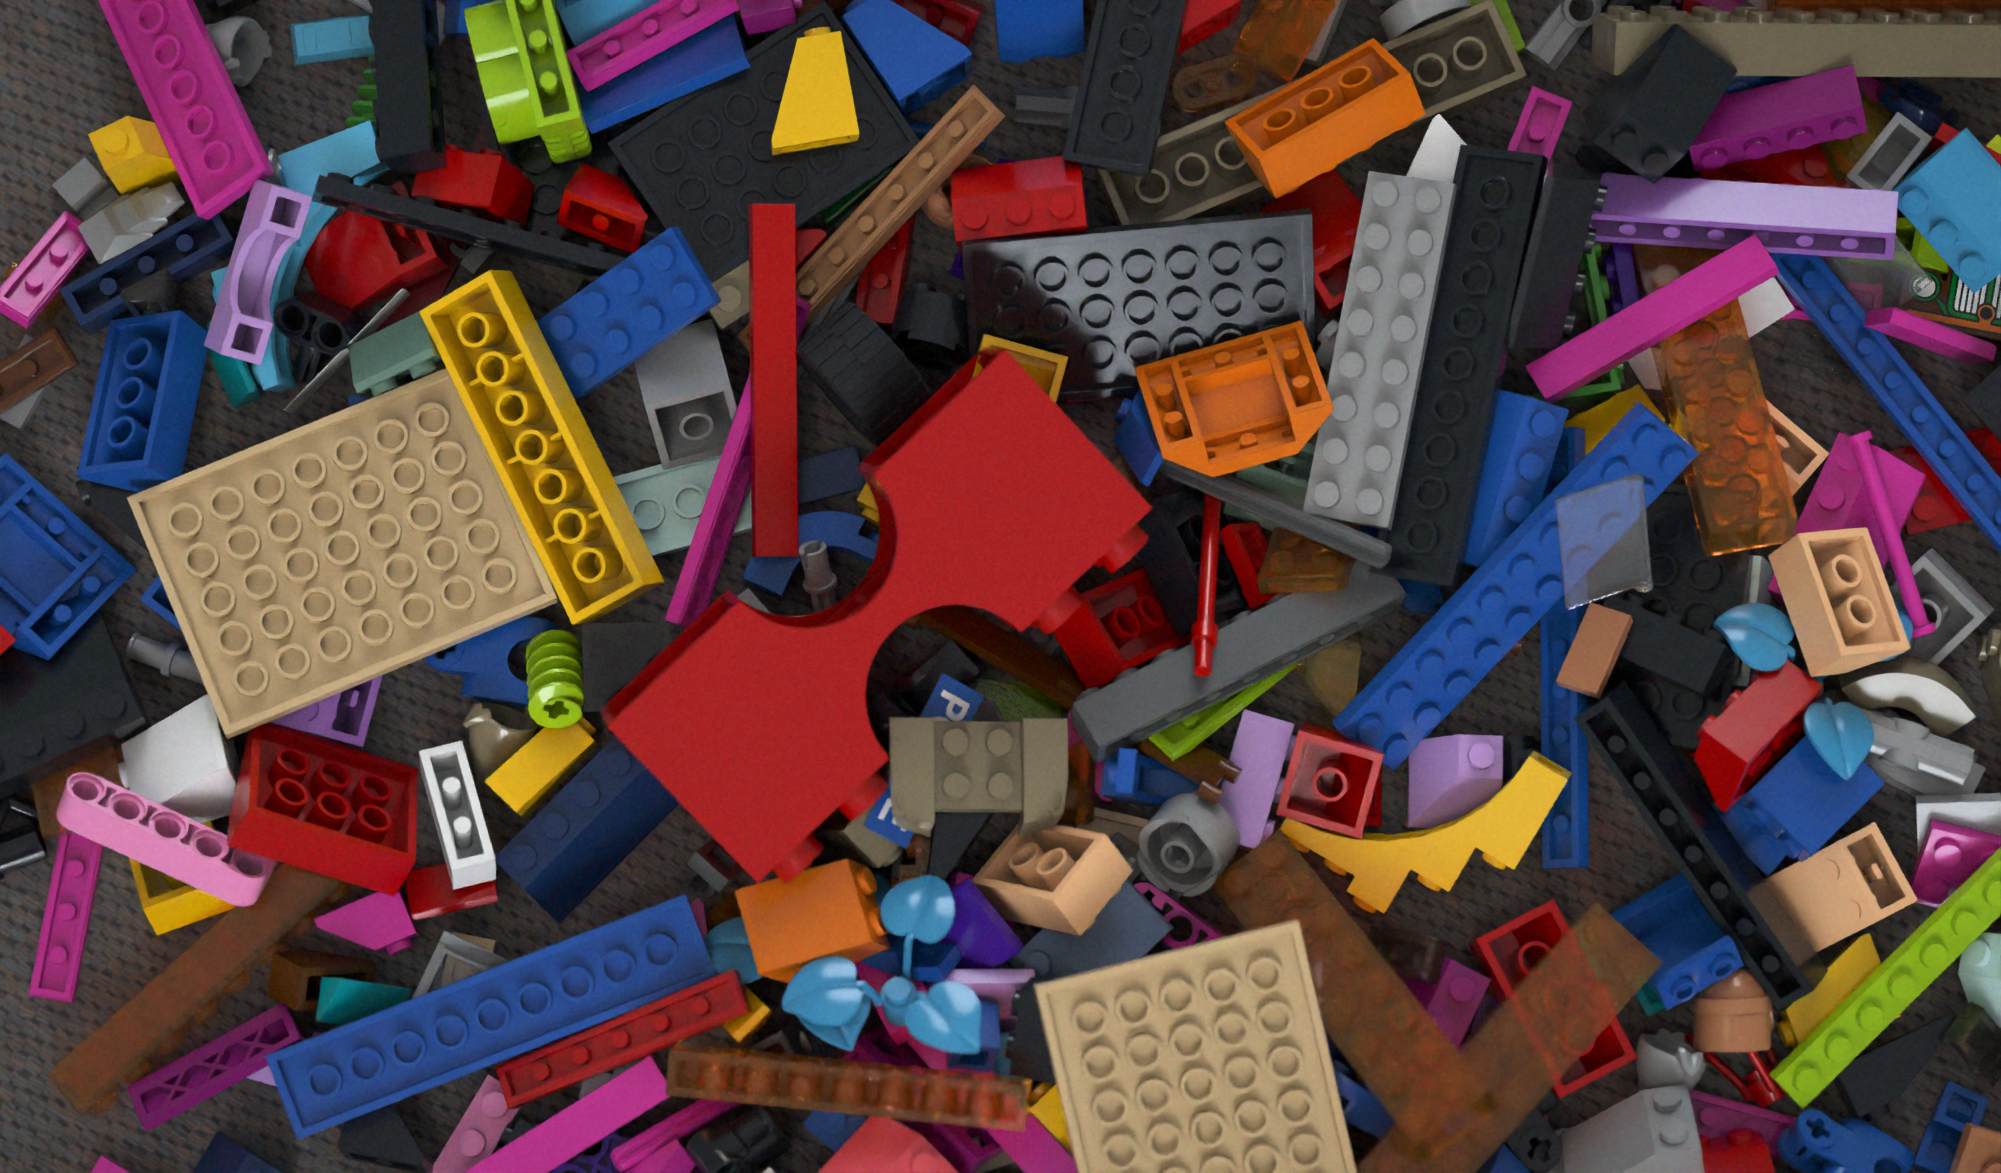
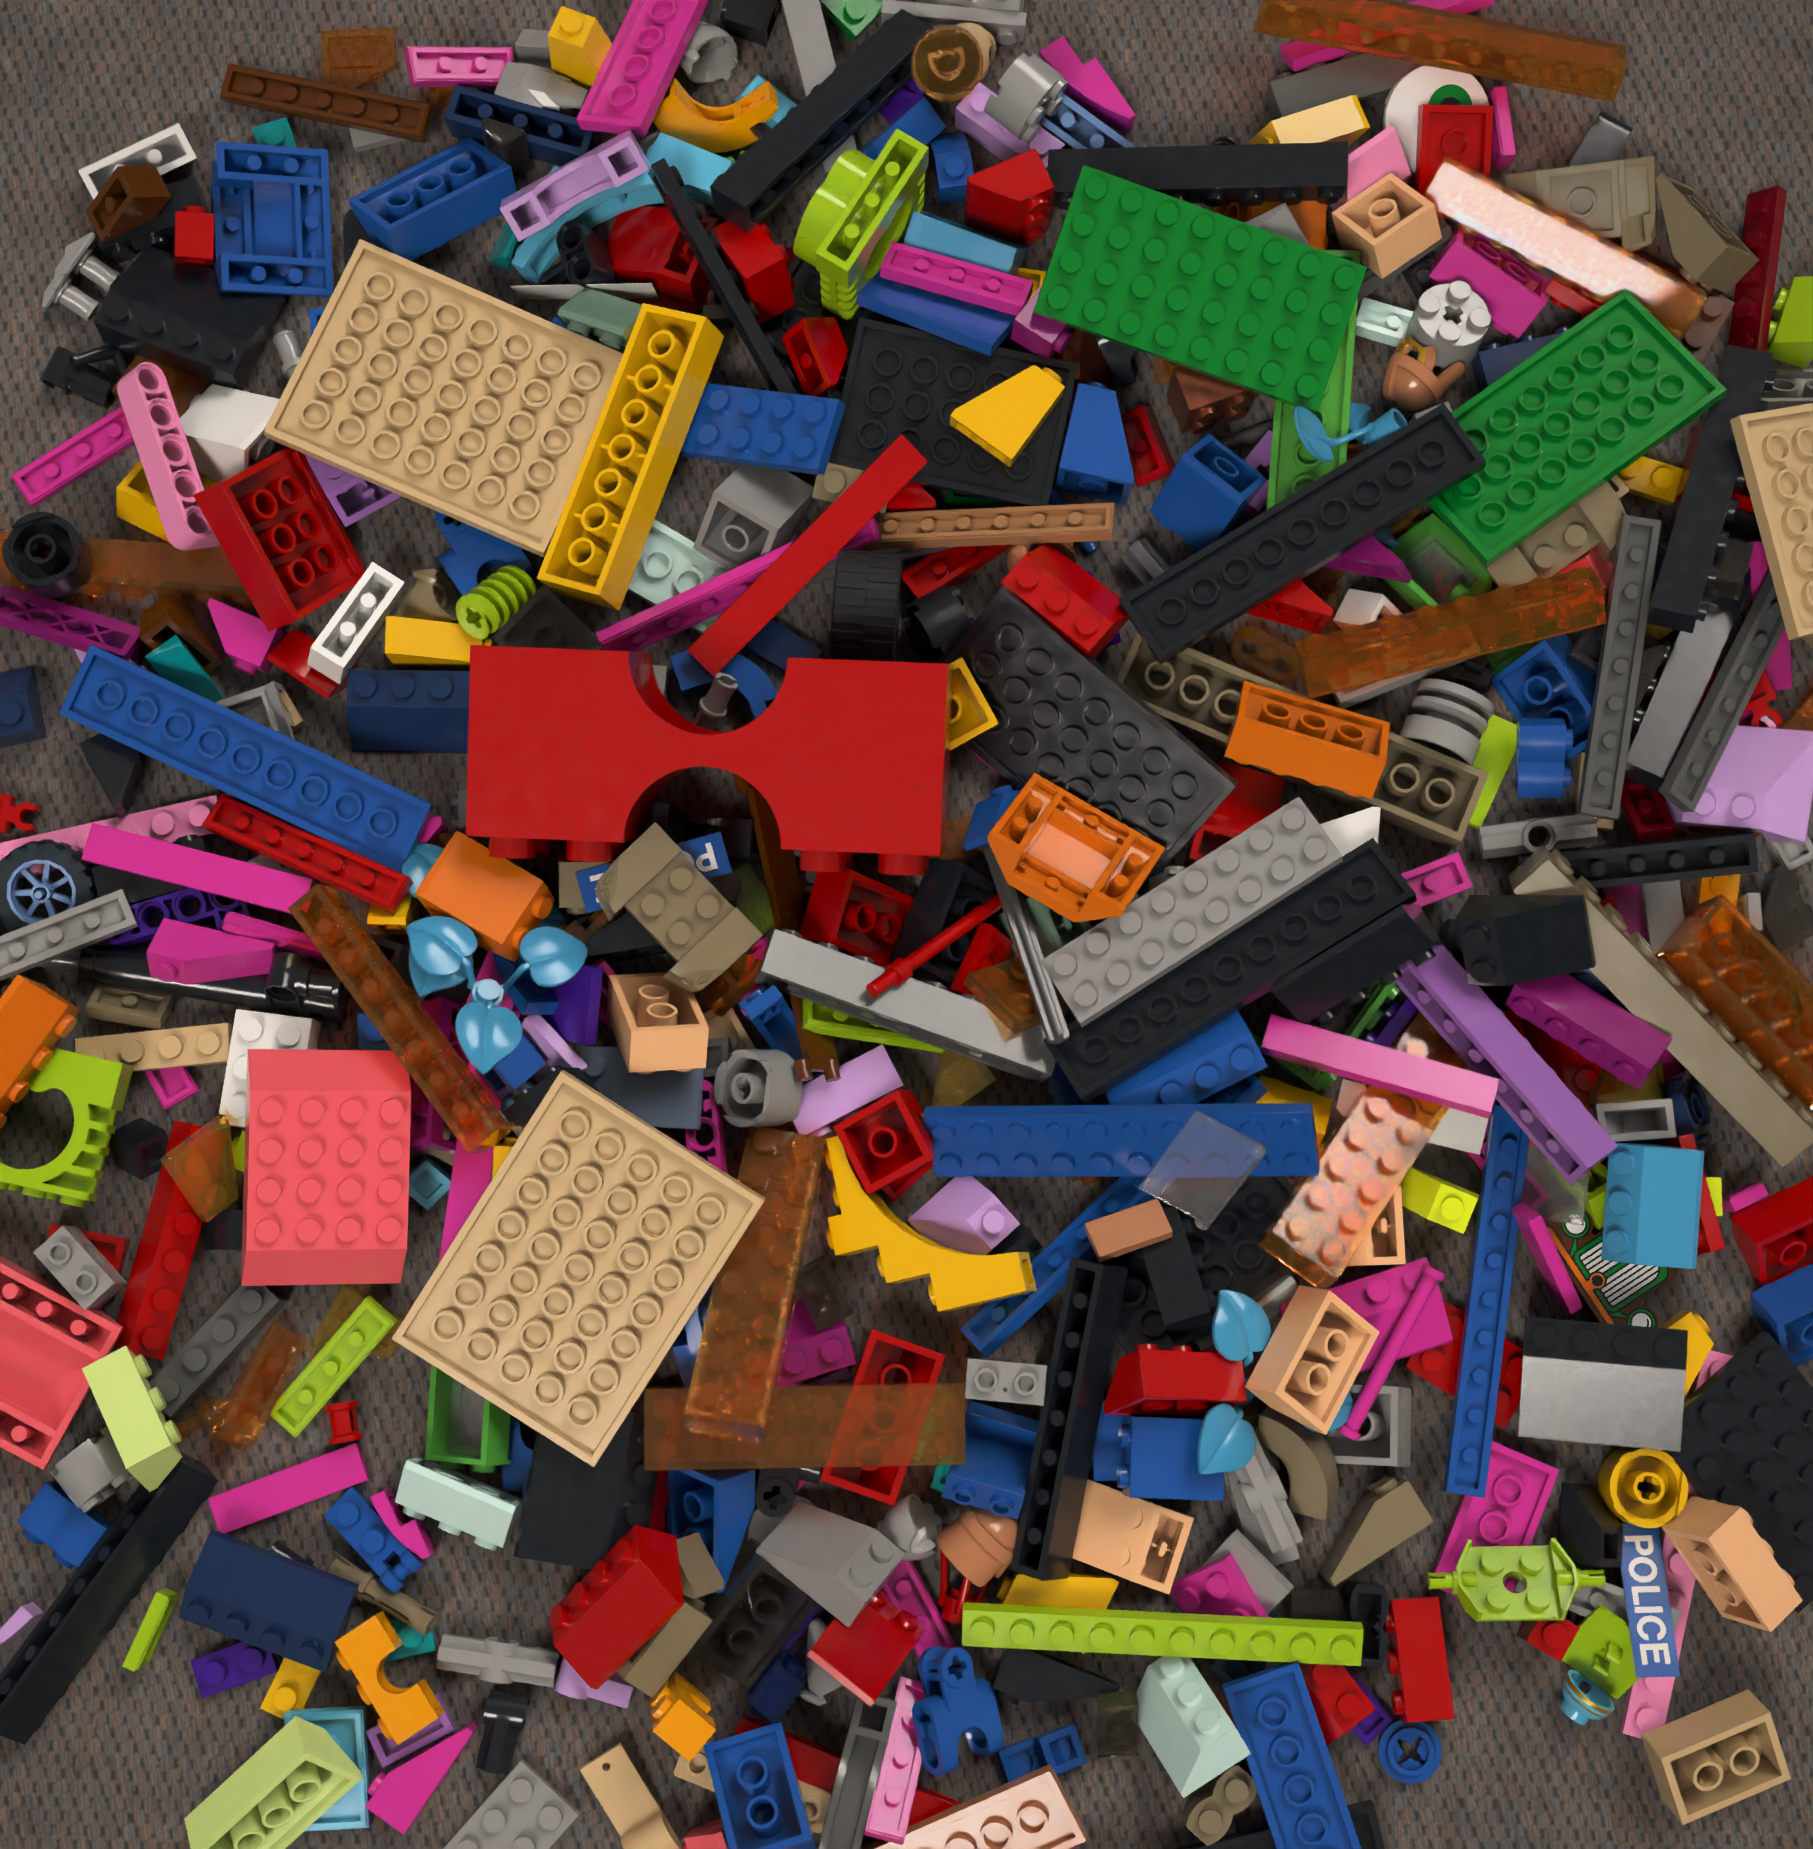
camera: 45 degrees right, 0 degrees up
(125, 1033) = (43, 572): none -> black brick
(311, 101) = (715, 127): none -> light orange arch
(1621, 869) = (1004, 1381): none -> light grey window
(1803, 377) = (1438, 1199): none -> neon yellow slope

